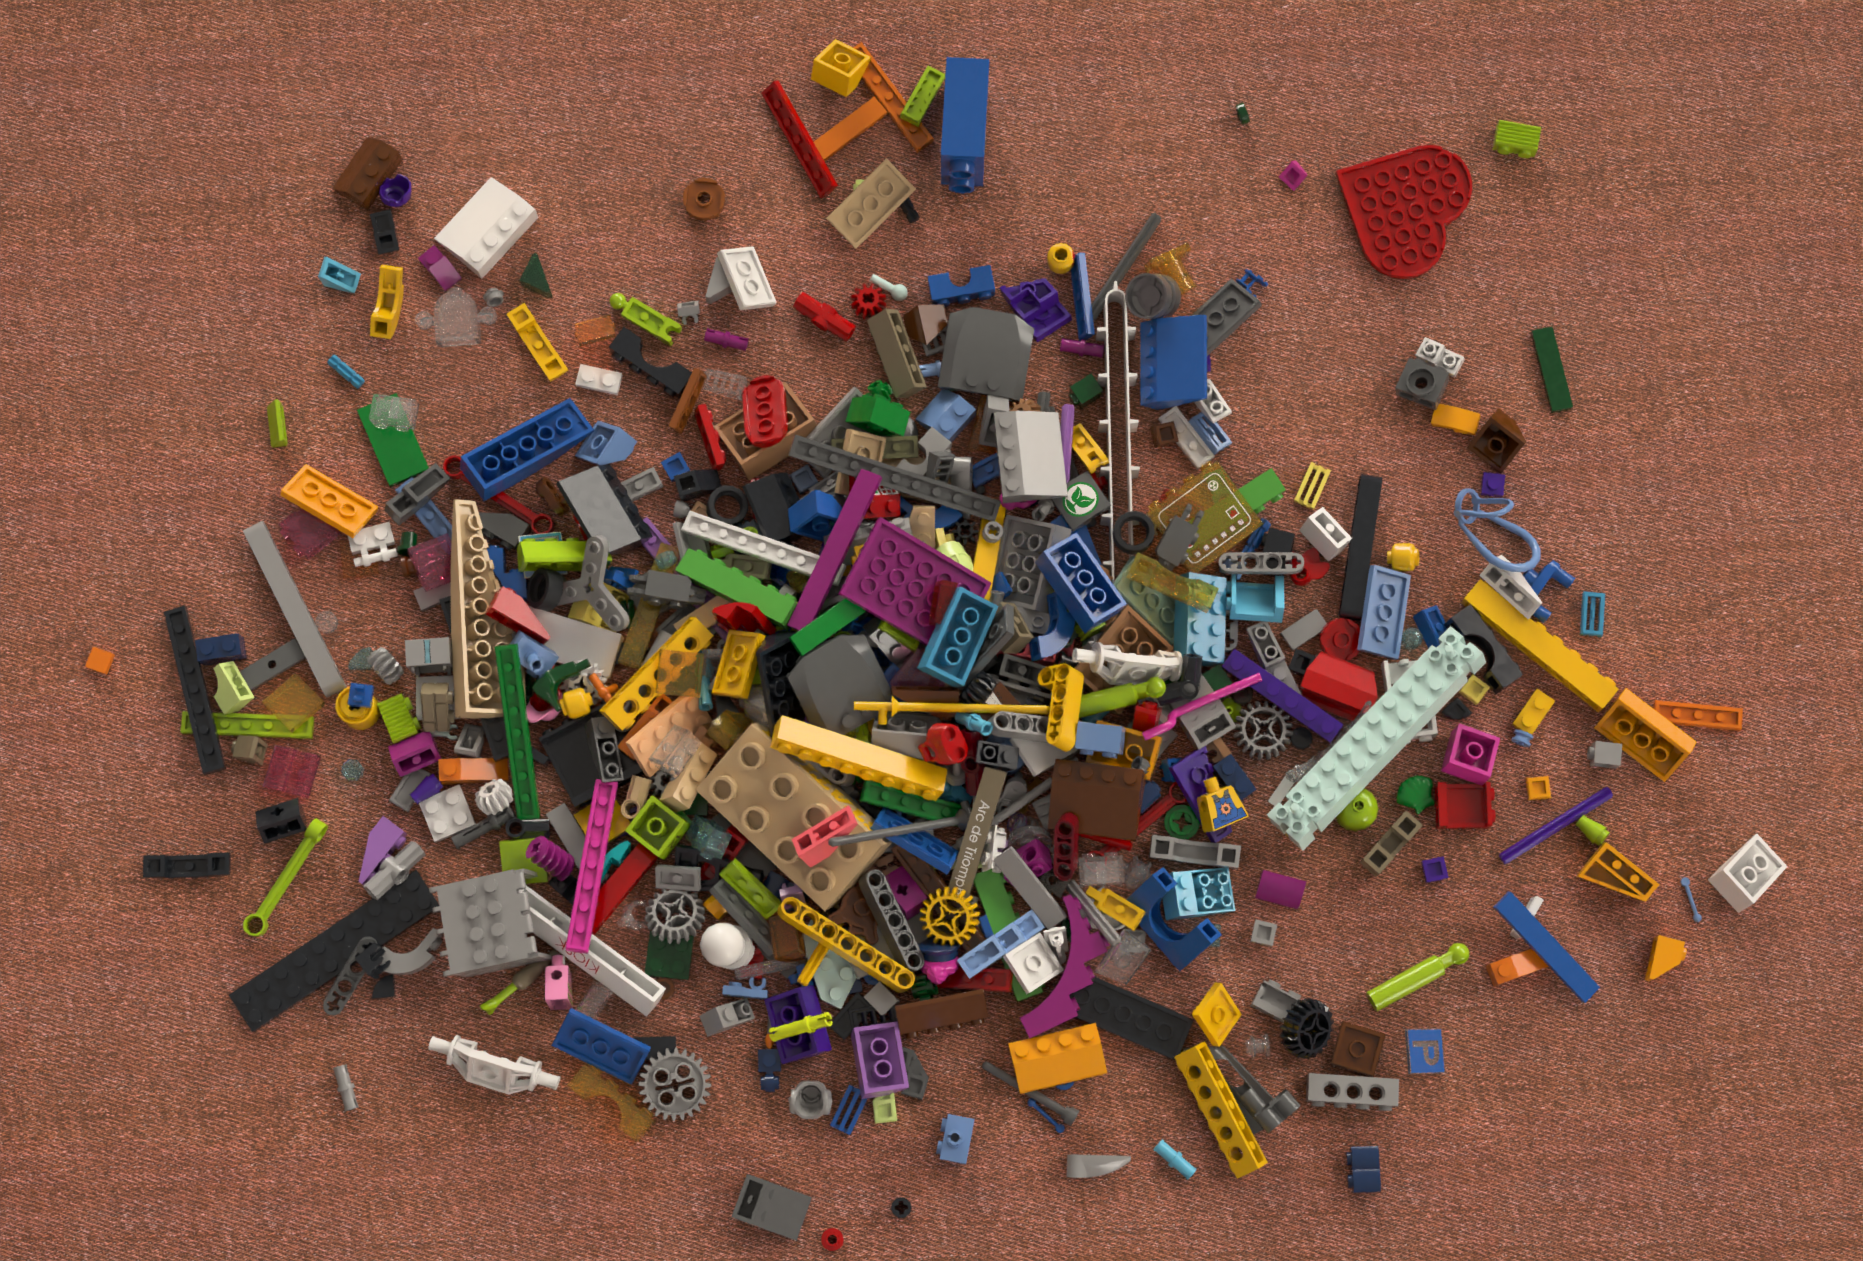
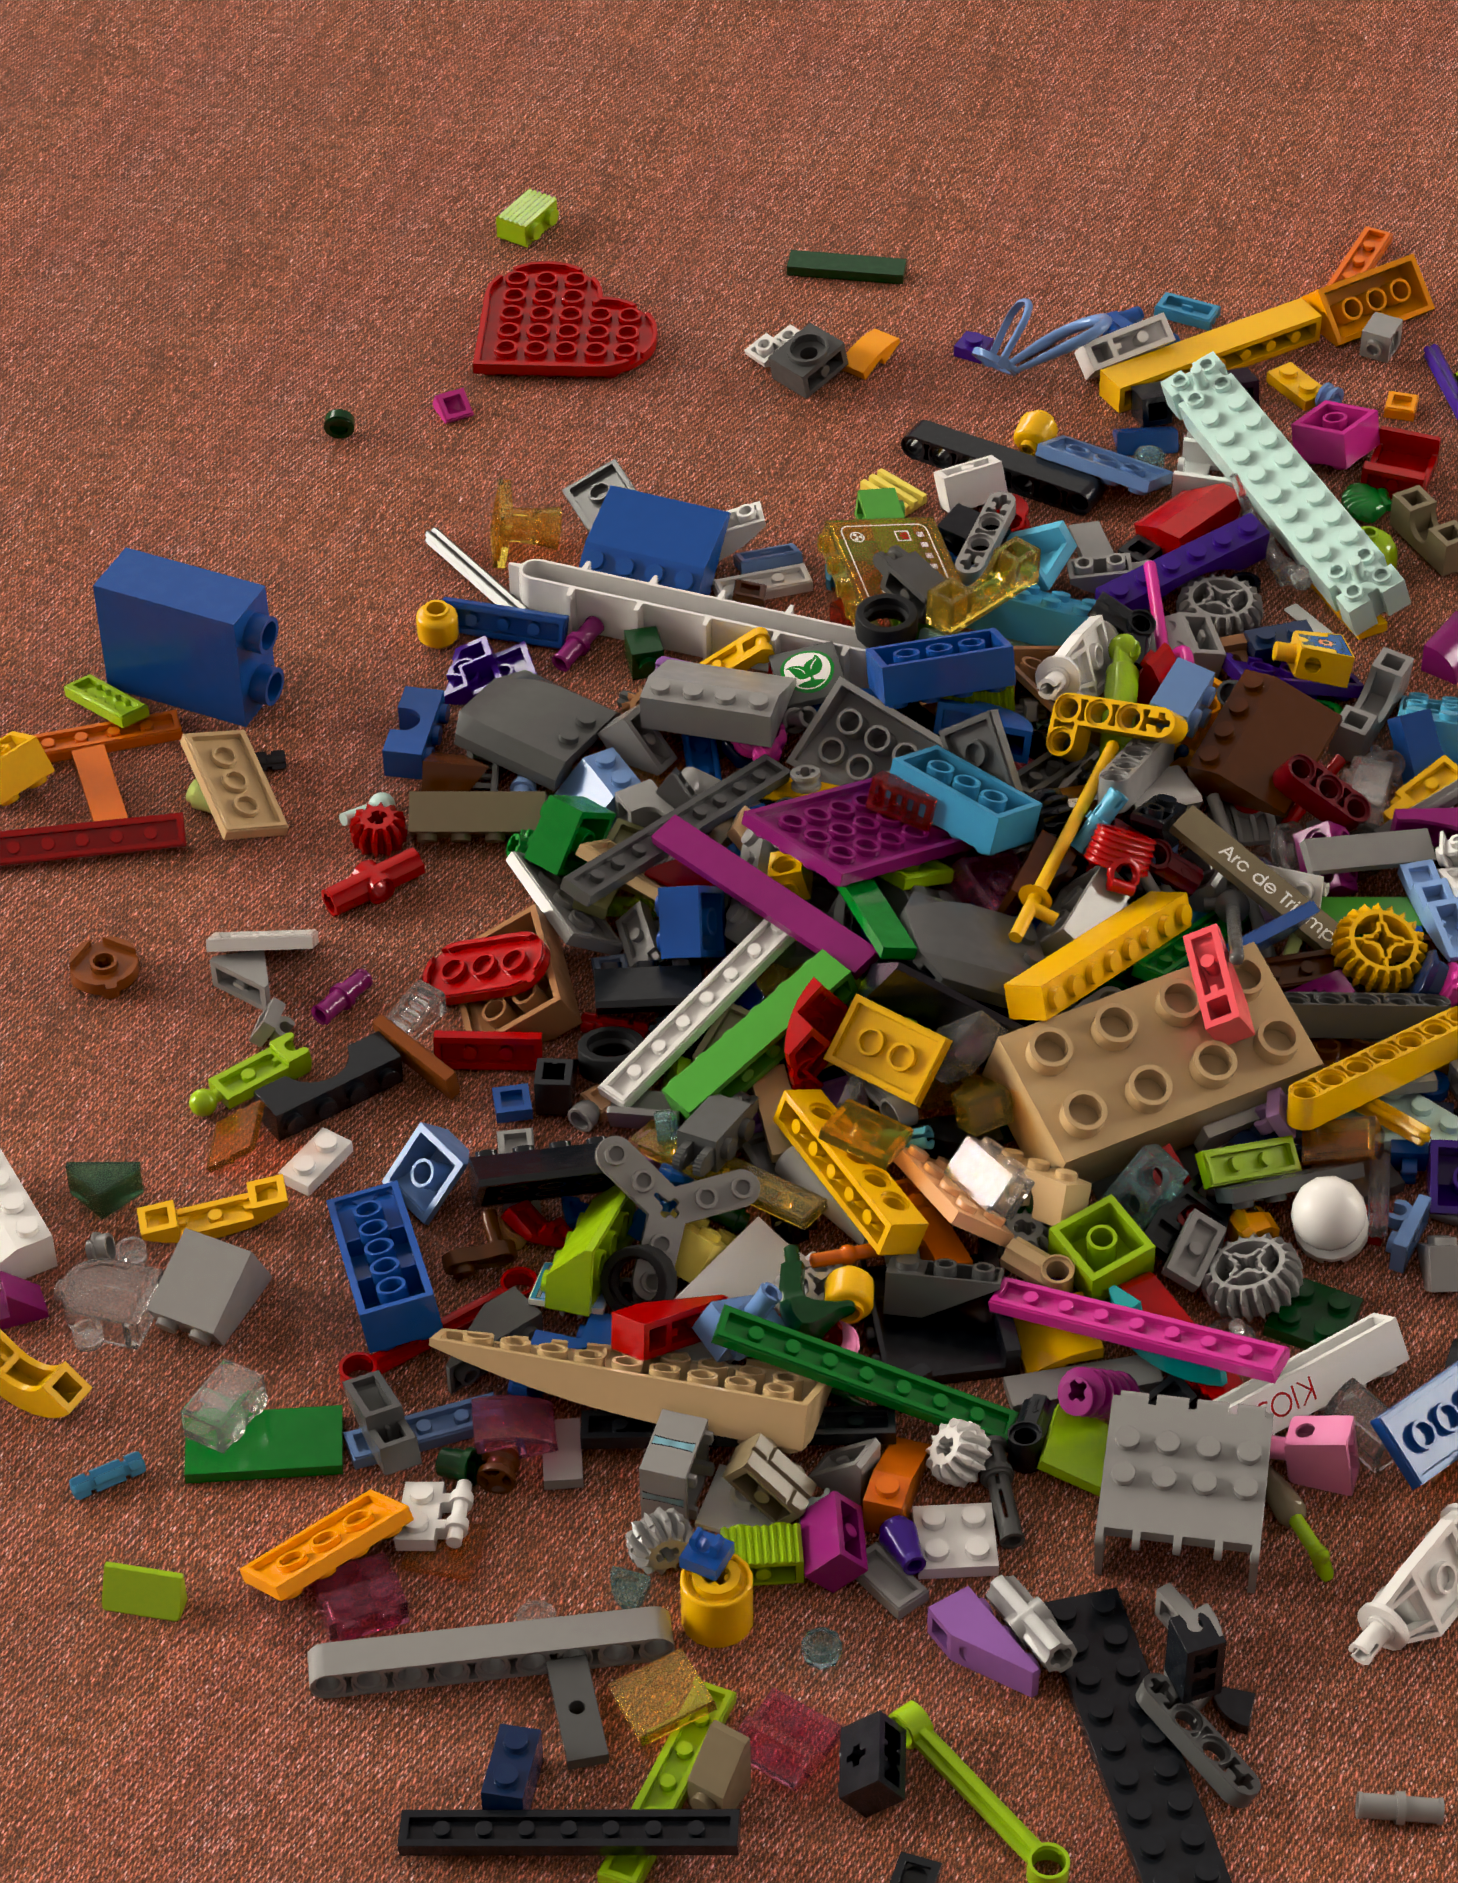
camera: 70 degrees left, 35 degrees down
(232, 689) = (603, 1773): yellowish green arch -> none
(480, 366) = (207, 1288): none -> light grey slope
(1152, 296) = (552, 531): flat silver wheel -> none
(1255, 278) = (573, 473): blue piece -> none
(1340, 638) = (1118, 513): red tile -> none
(1498, 441) = (920, 321): reddish brown slope -> none

